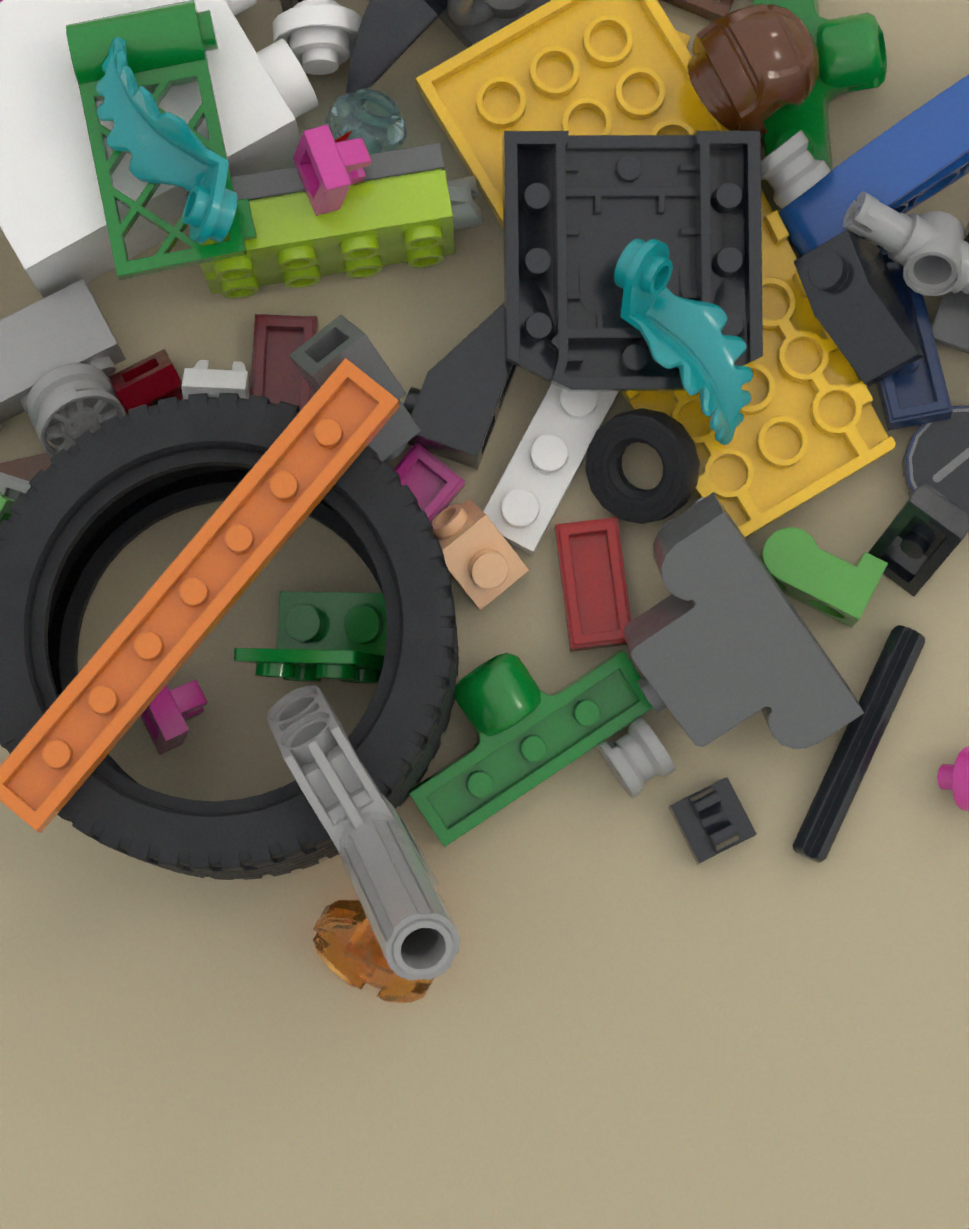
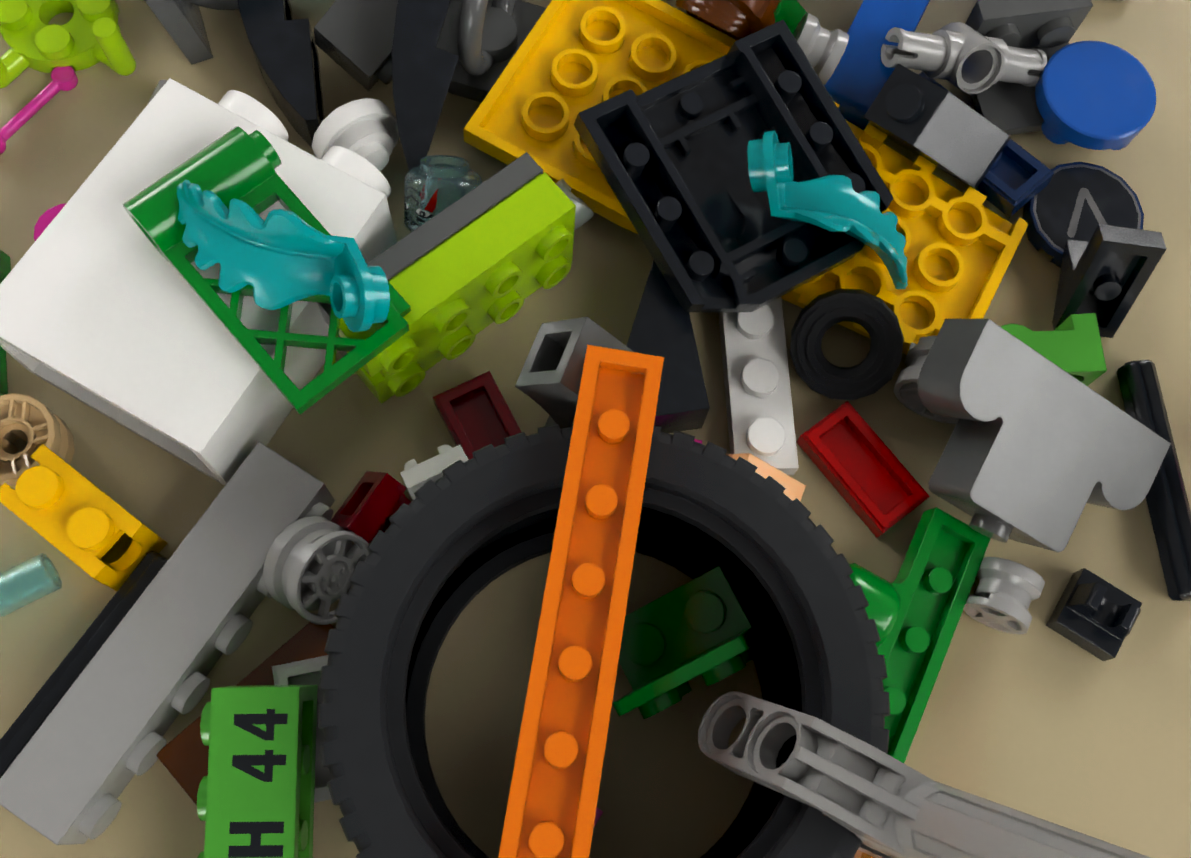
camera: 40 degrees left, 10 degrees down
(329, 167) = (443, 211): dark pink tile -> none

